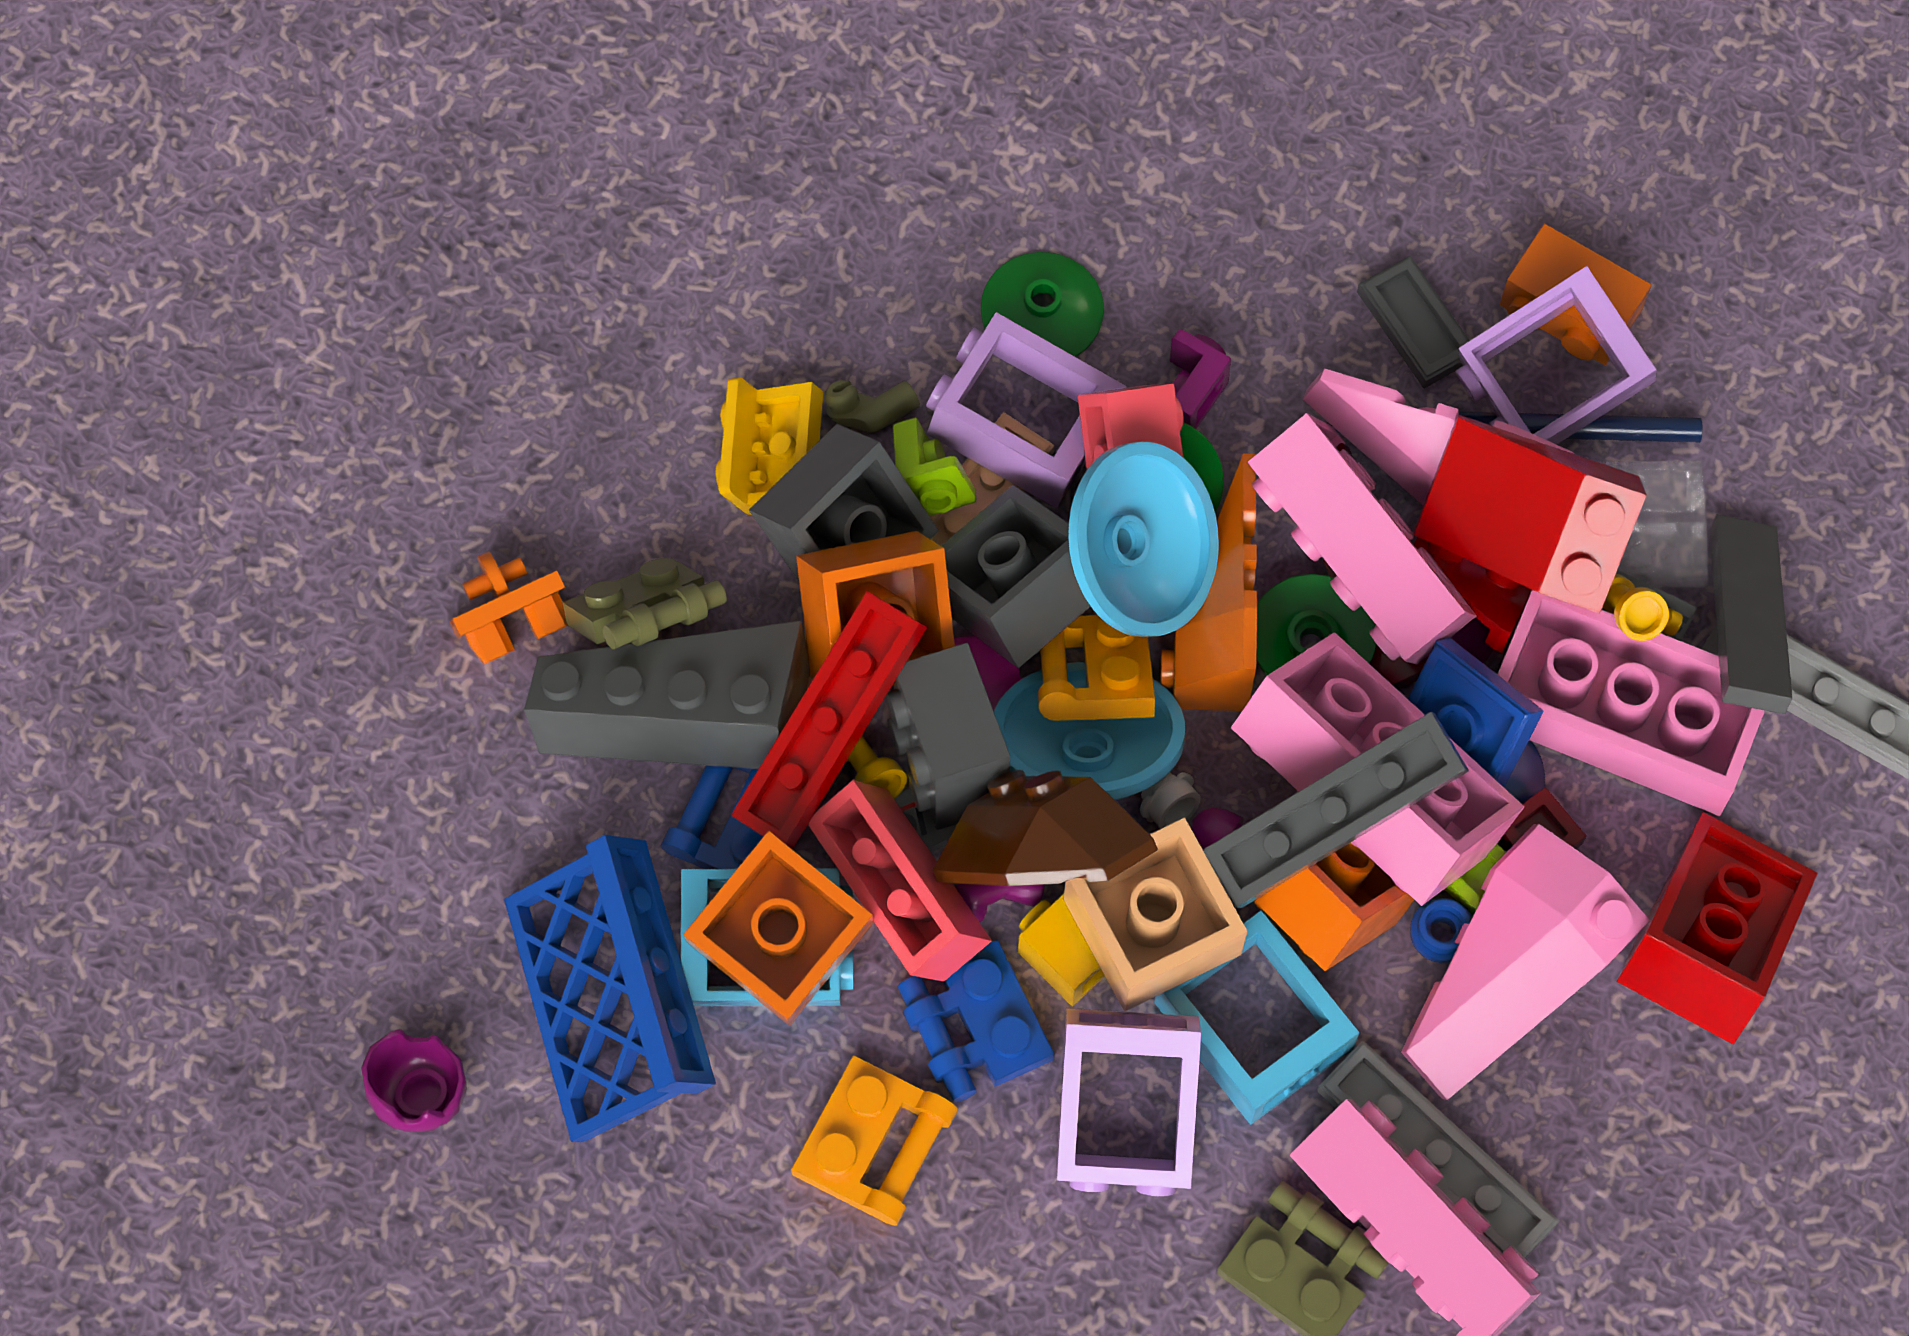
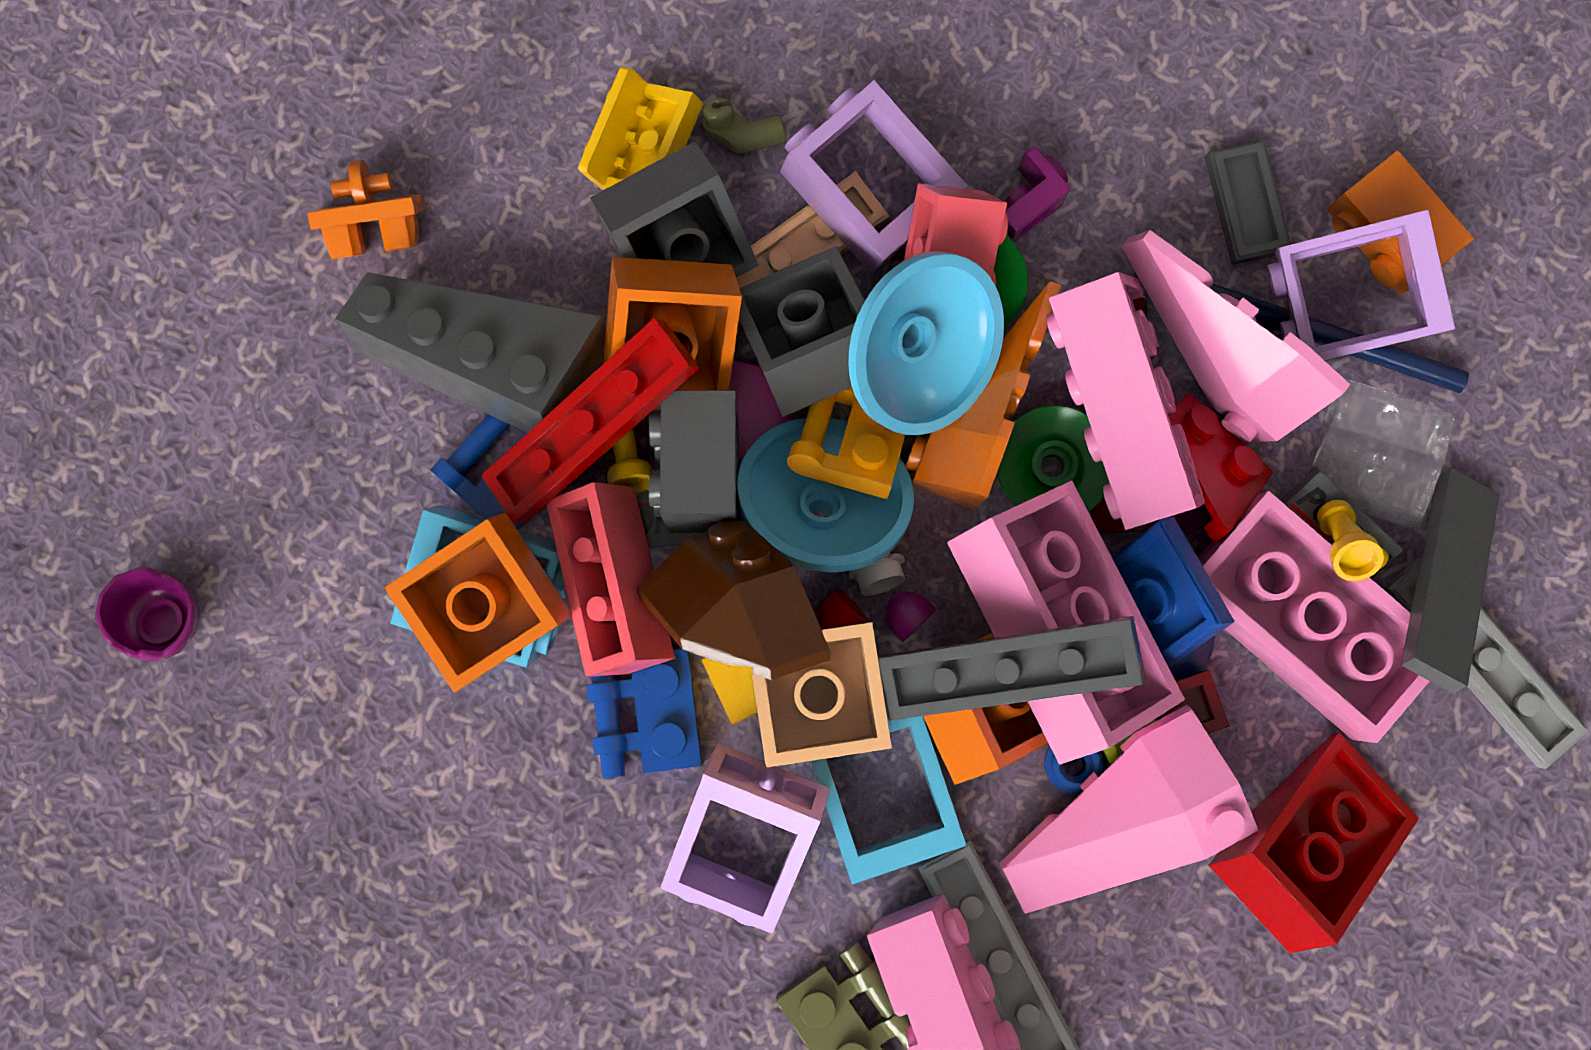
camera: 20 degrees right, 15 degrees up
(643, 603) = (477, 251): olive plate -> none
(644, 969) = (365, 619): blue fence -> none
(855, 1130) = (510, 775): light orange plate -> none
(934, 478) = (765, 207): lime bracket -> none
(1069, 321) = (935, 108): green dish -> none
(1531, 512) = (1293, 429): red slope -> none

